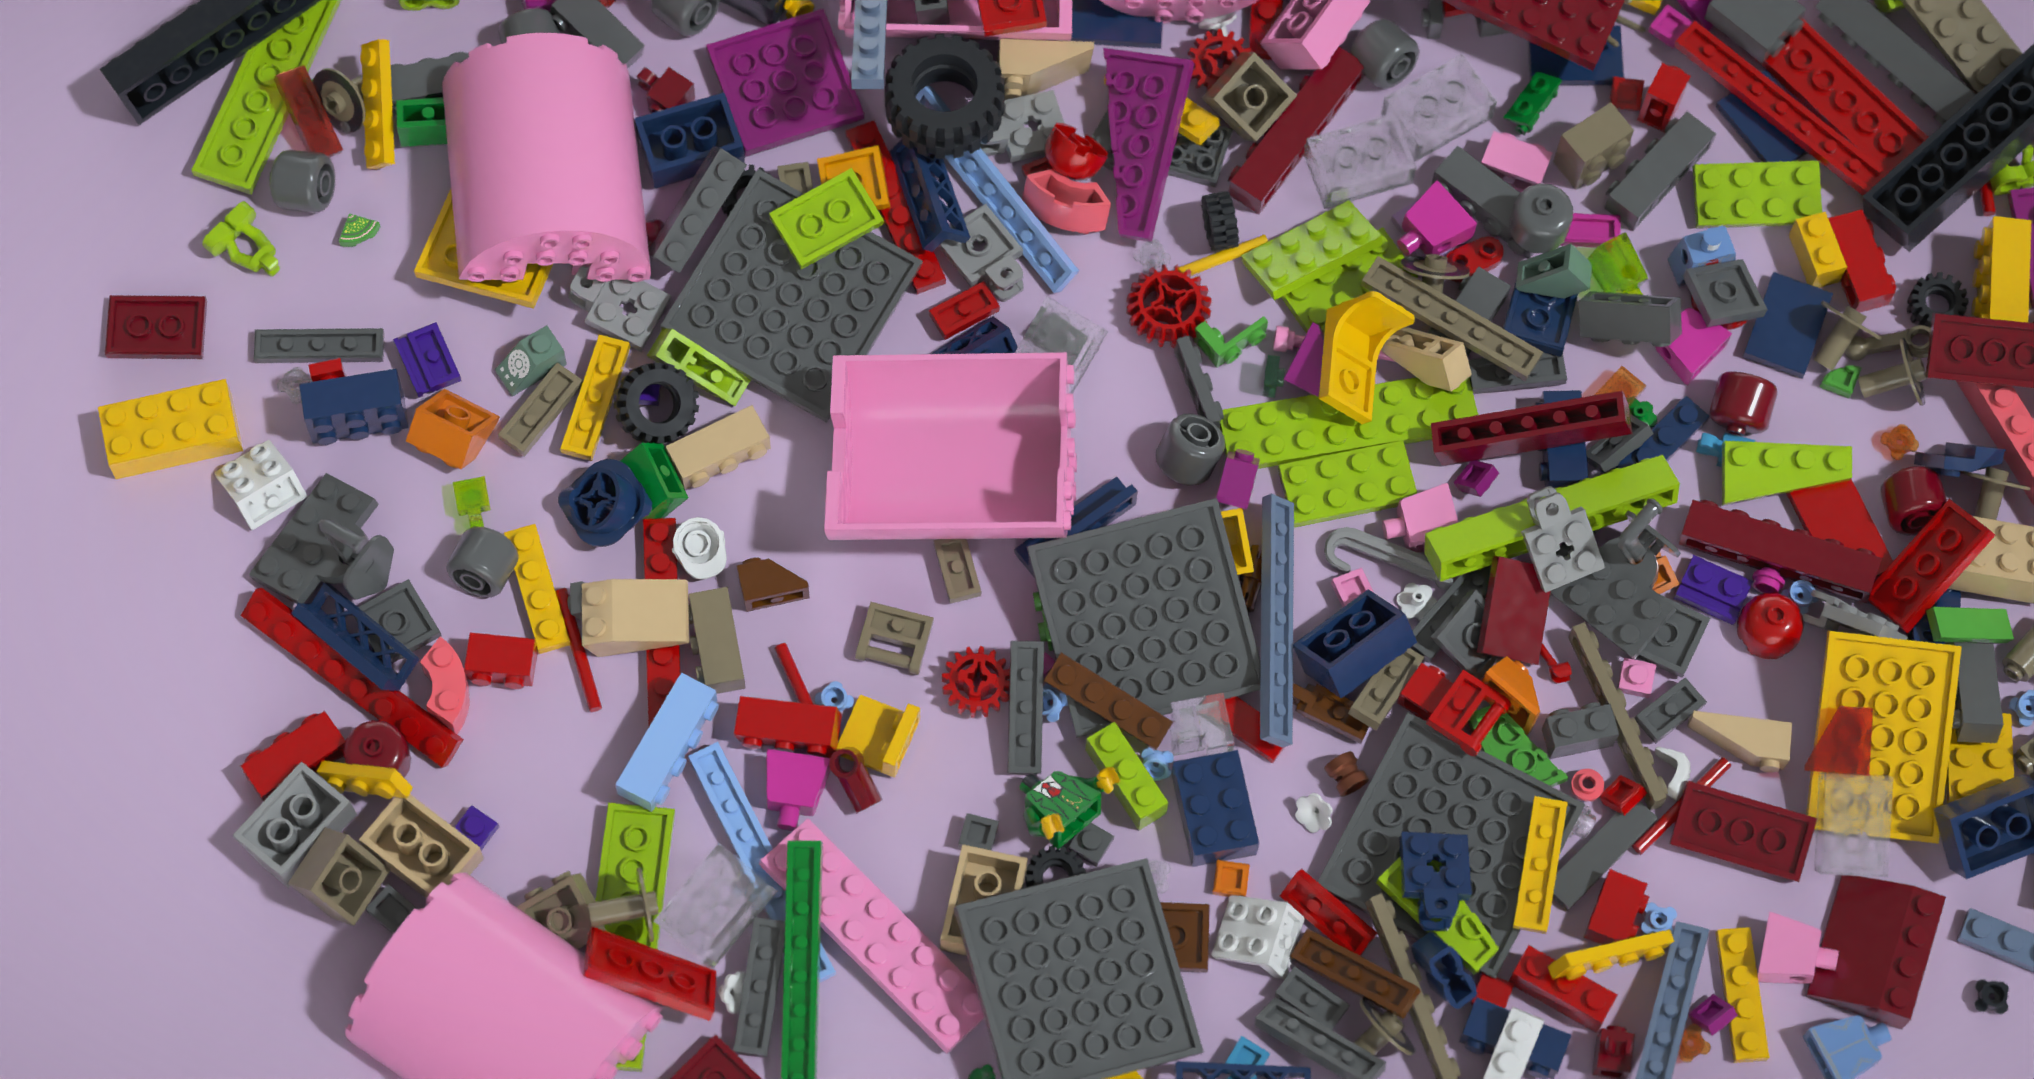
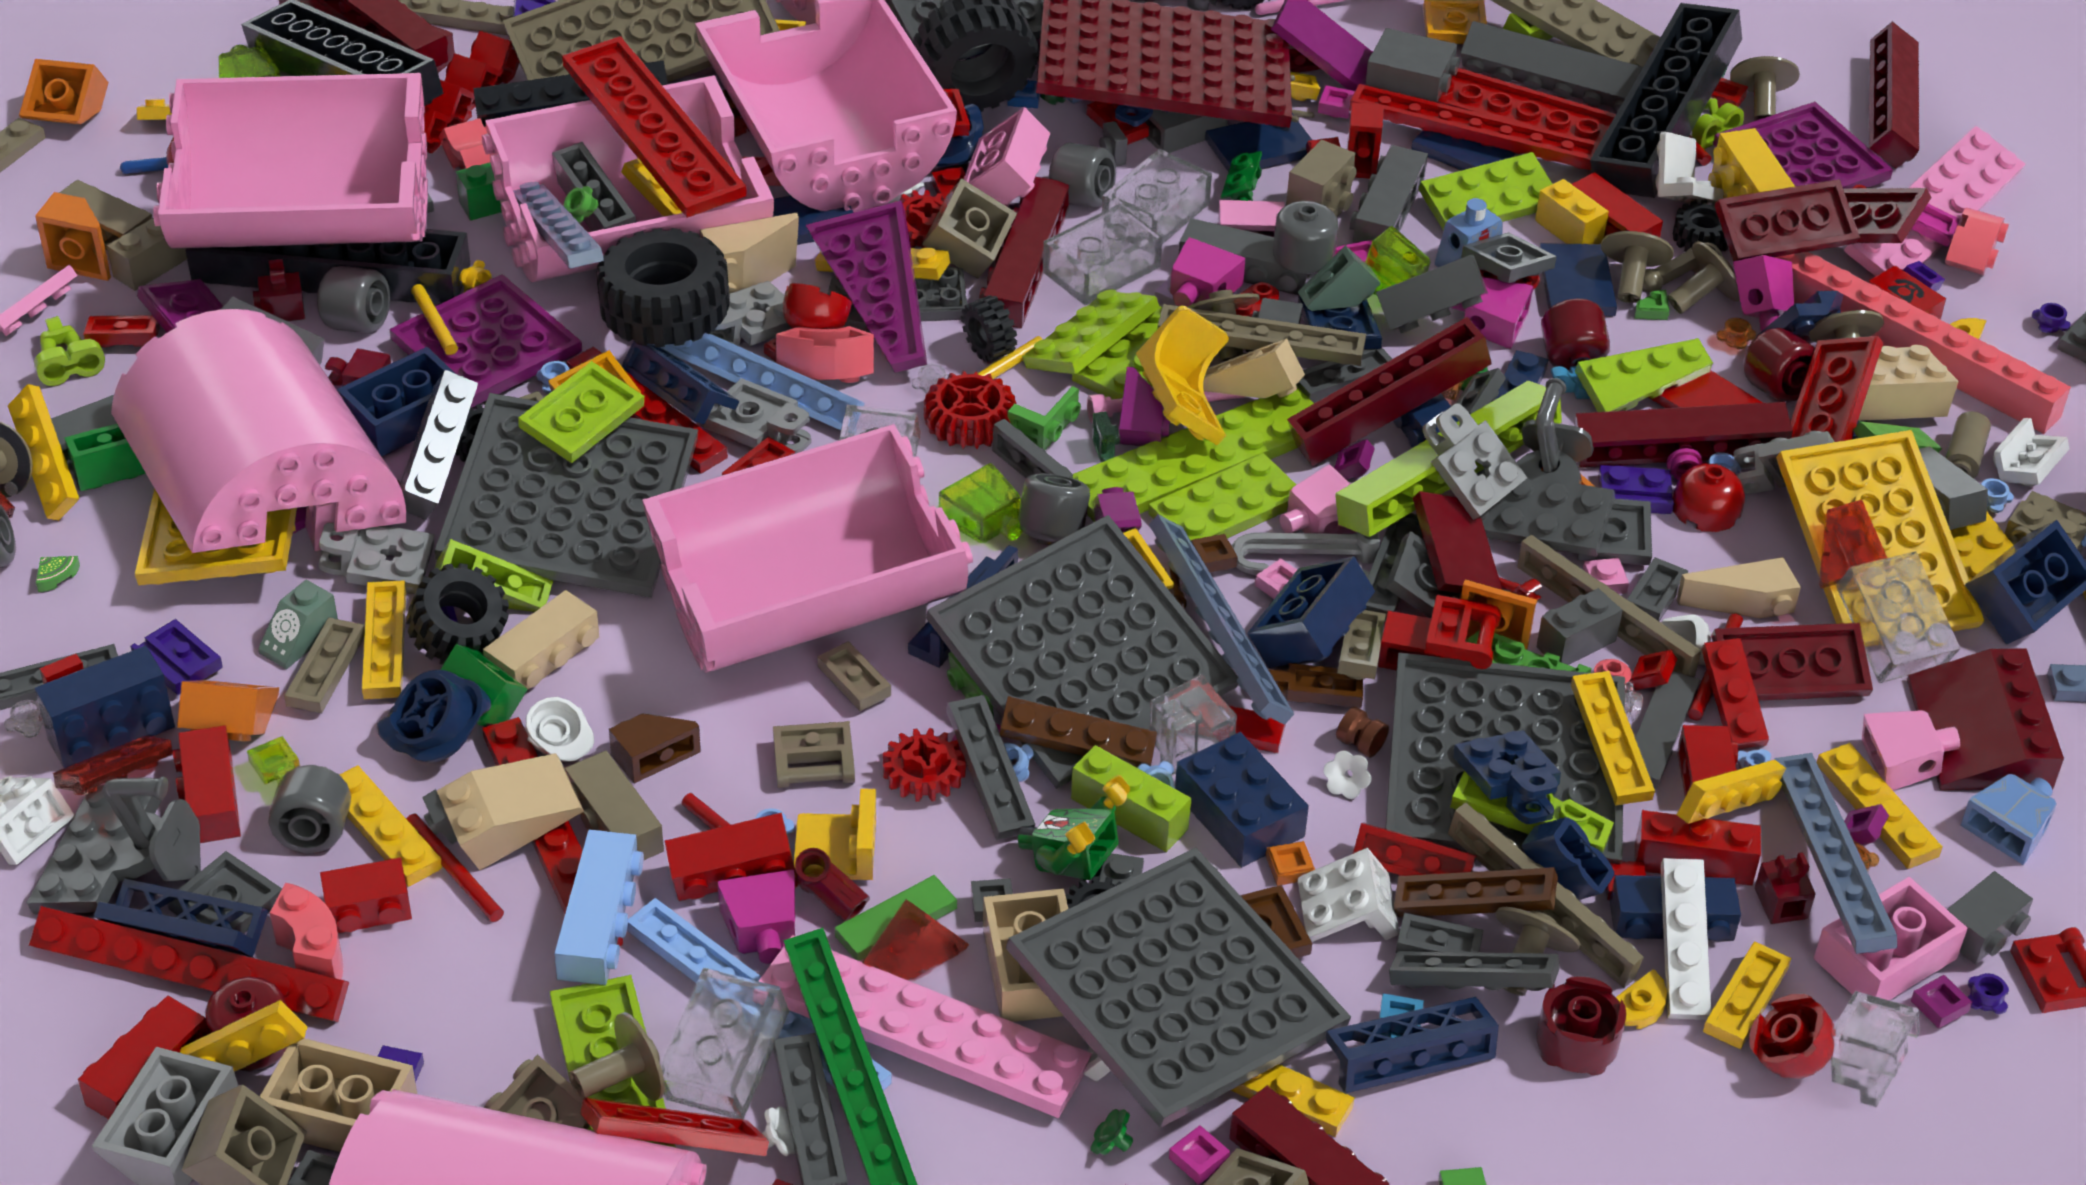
camera: 20 degrees left, 25 degrees down
(346, 464) = (113, 764): none -> clear red plate
(414, 504) = (208, 781): none -> red brick
(746, 52) = (434, 319): none -> yellow bar
(828, 137) = (550, 371): none -> light blue plate
(896, 857) = (913, 944): none -> clear red wing
(898, 821) = (864, 929): none -> bright green tile
(1135, 420) = (983, 505): none -> clear neon green torso
(1309, 539) = (1216, 552): none -> reddish brown plate
(1675, 847) = (1735, 692): none -> red plate
(1936, 242) = (1677, 171): none -> white bracket
(1944, 410) = (1764, 287): none -> dark pink torso

